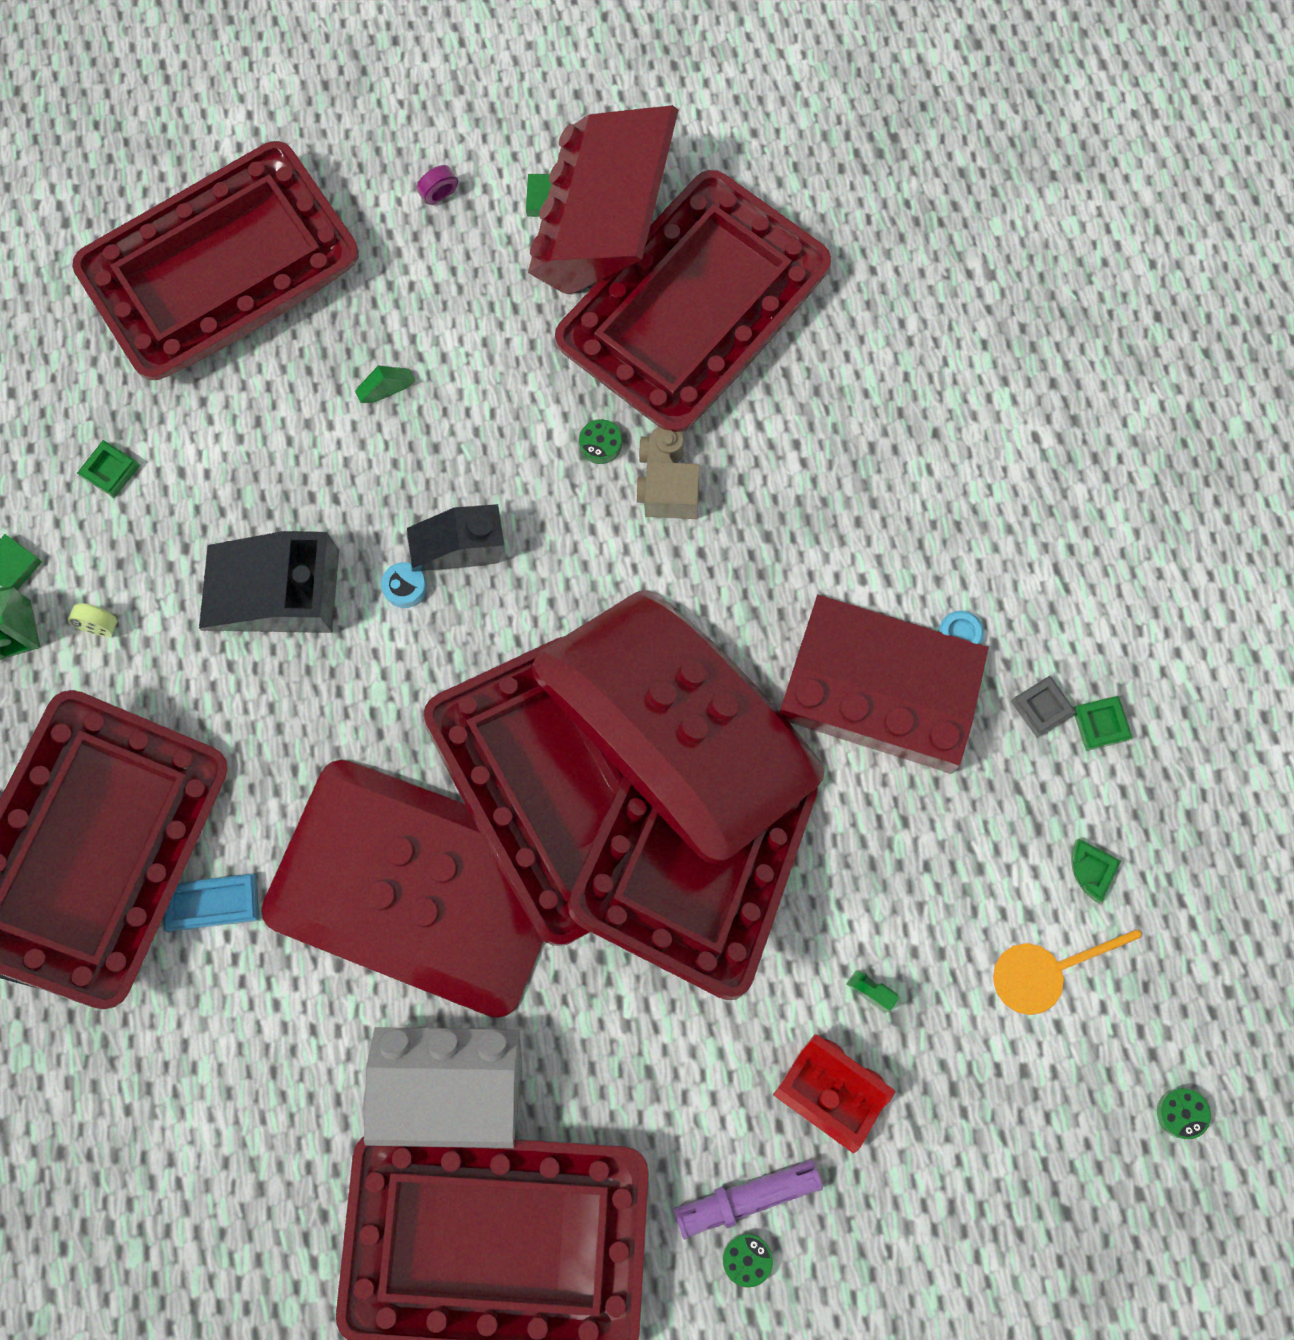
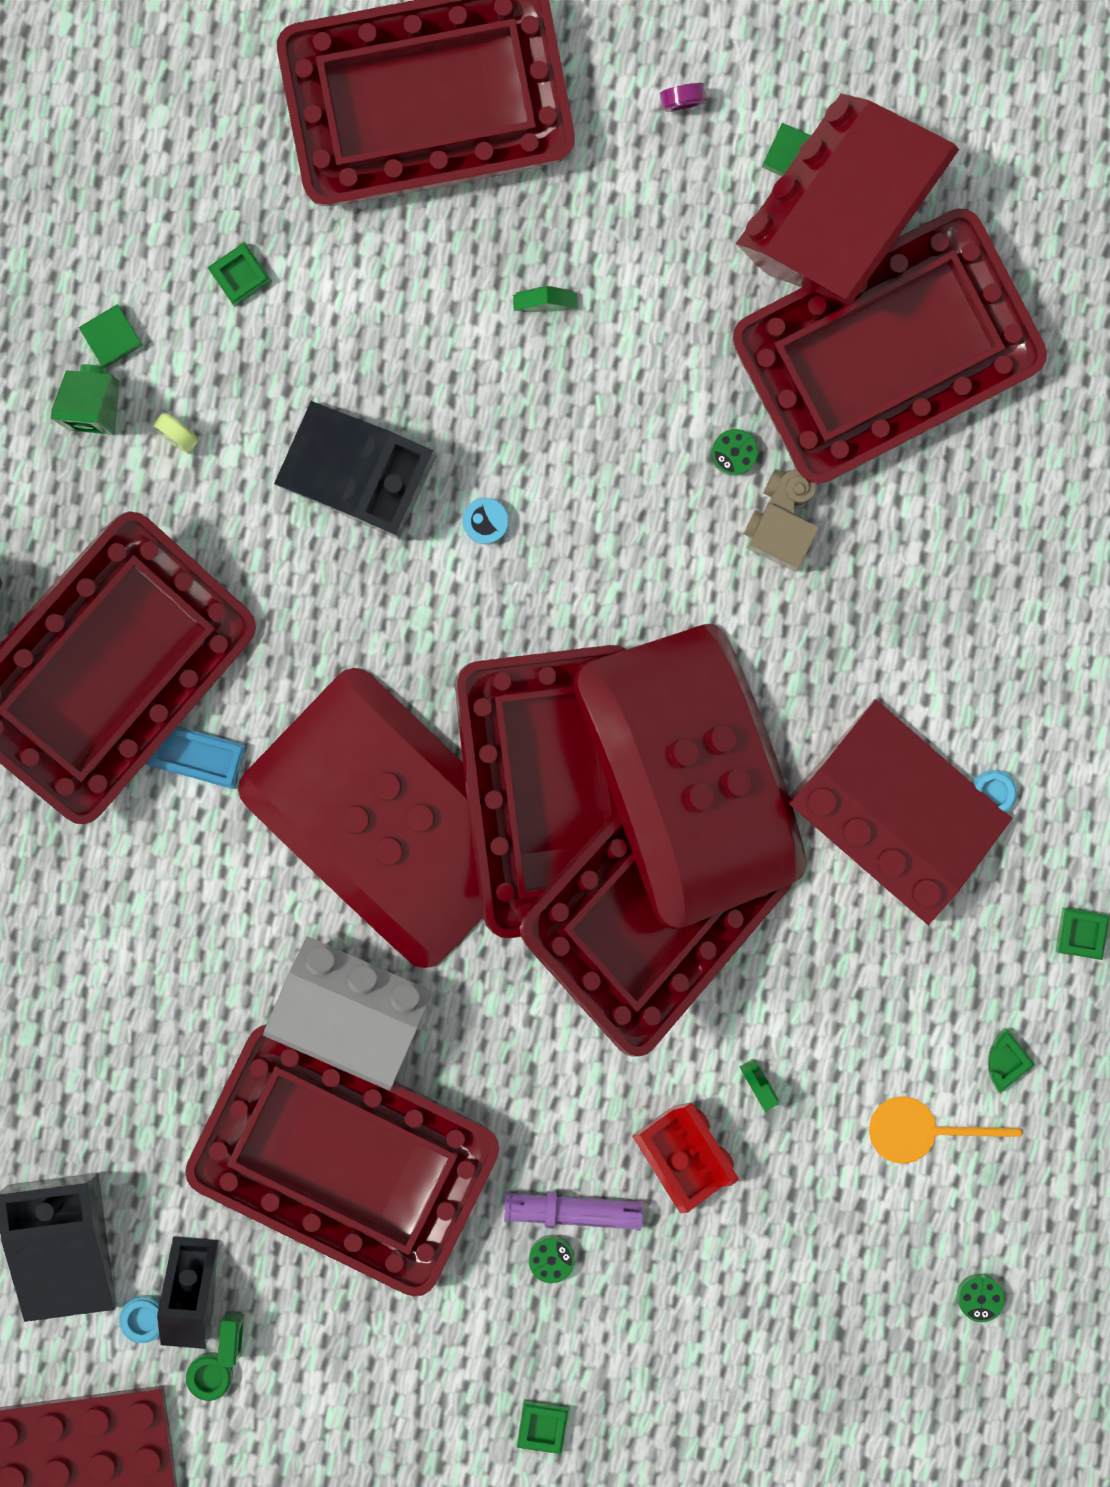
camera: 15 degrees right, 15 degrees up
(456, 539) = (553, 501): black slope -> none
(1043, 706) = (1036, 895): dark grey tile -> none

